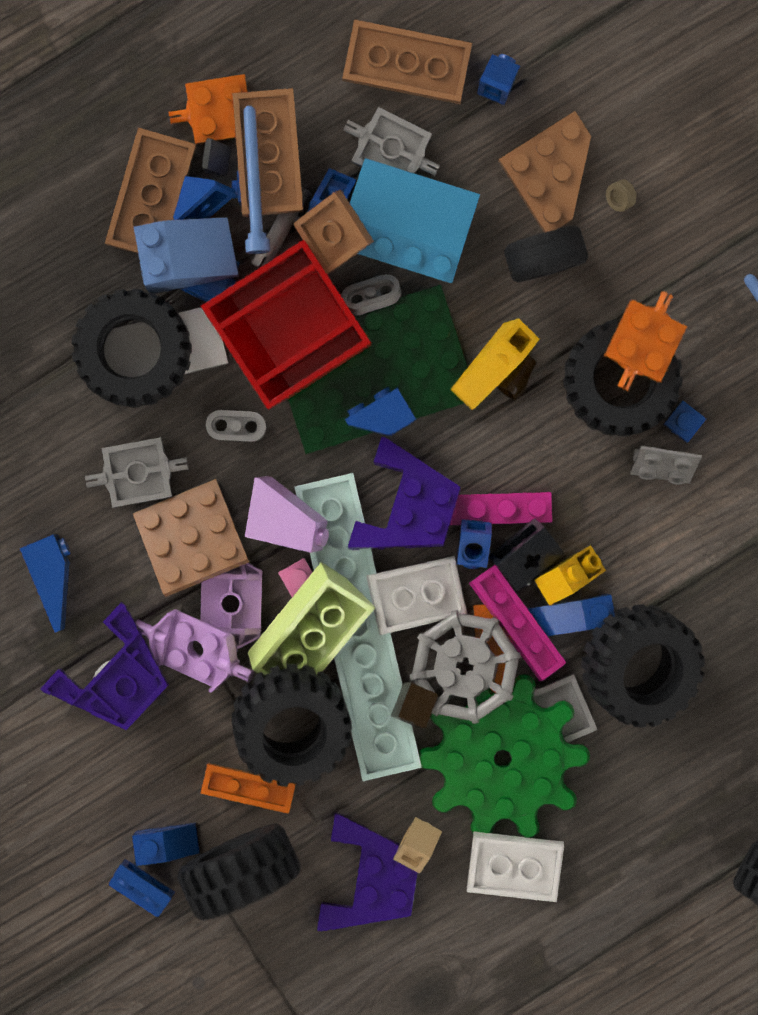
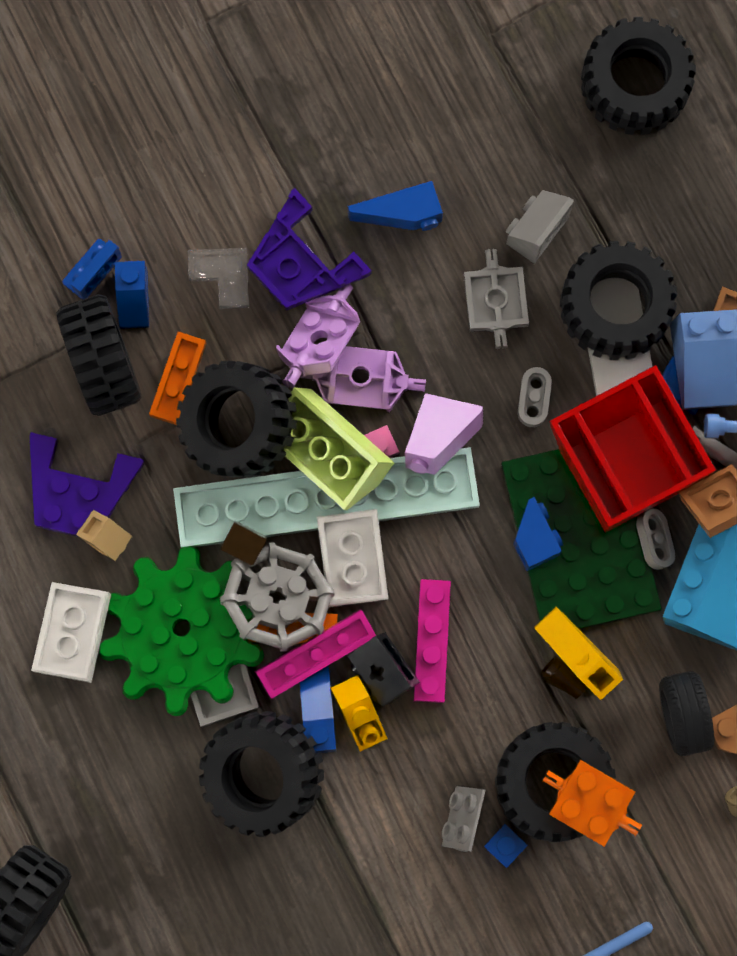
camera: 90 degrees right, 10 degrees down
(55, 434) = (539, 224): none -> light grey slope
(128, 748) = (227, 267): none -> clear plate
(190, 538) = (428, 343): medium nougat plate -> none
(420, 509) = (437, 566): dark purple wing -> none
(474, 532) = (409, 622): blue brick -> none

